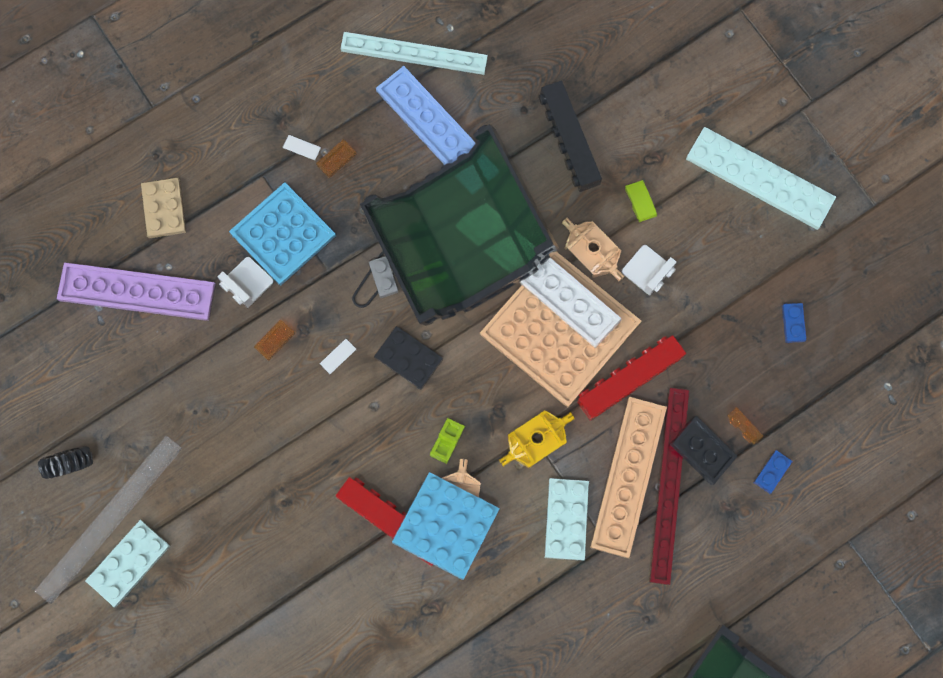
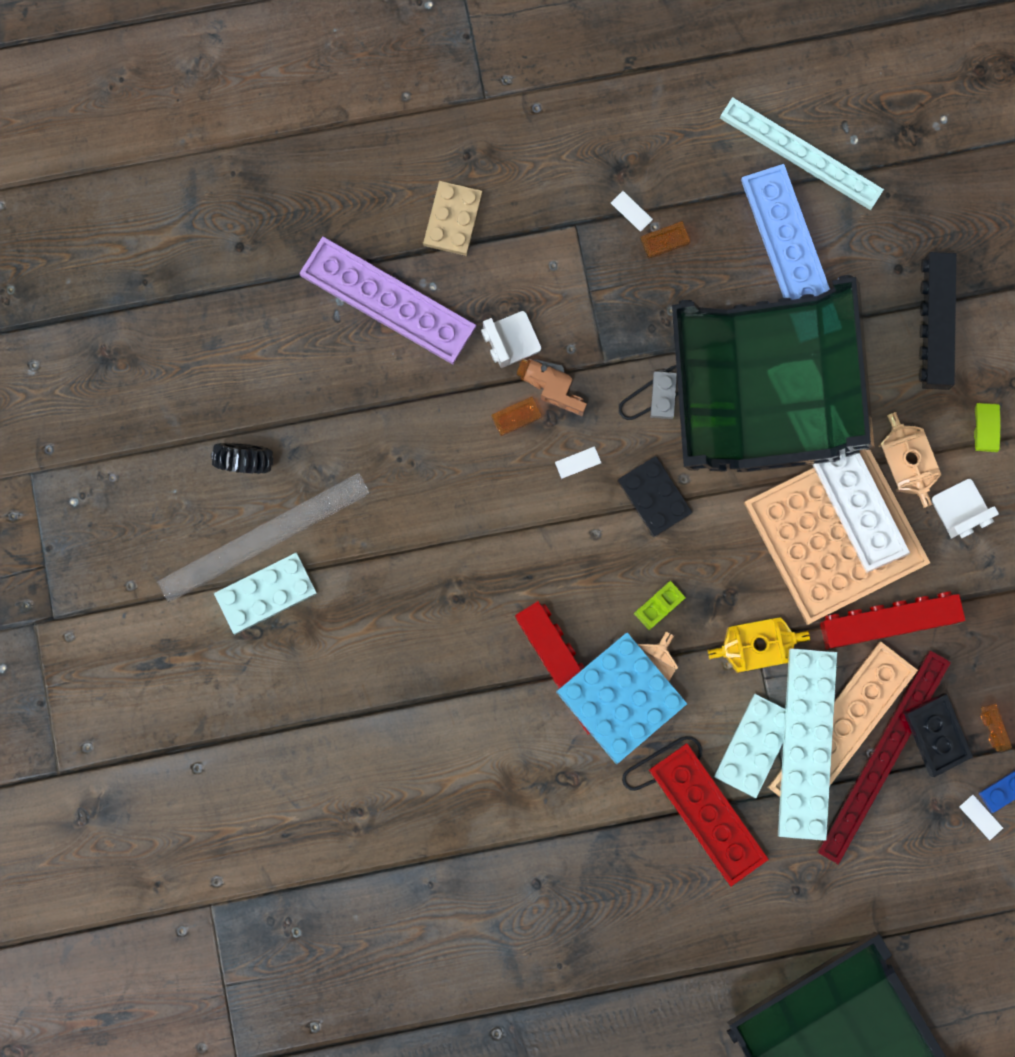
camera: 25 degrees right, 5 degrees up
(282, 233) = (572, 301): medium azure plate -> none
(294, 302) = (554, 382): none -> nougat plate
(507, 572) = (654, 755): none -> black piece
(552, 589) = (708, 815): none -> red plate
(606, 500) = (807, 744): none -> light aqua plate
(763, 500) = (981, 817): none -> white sticker

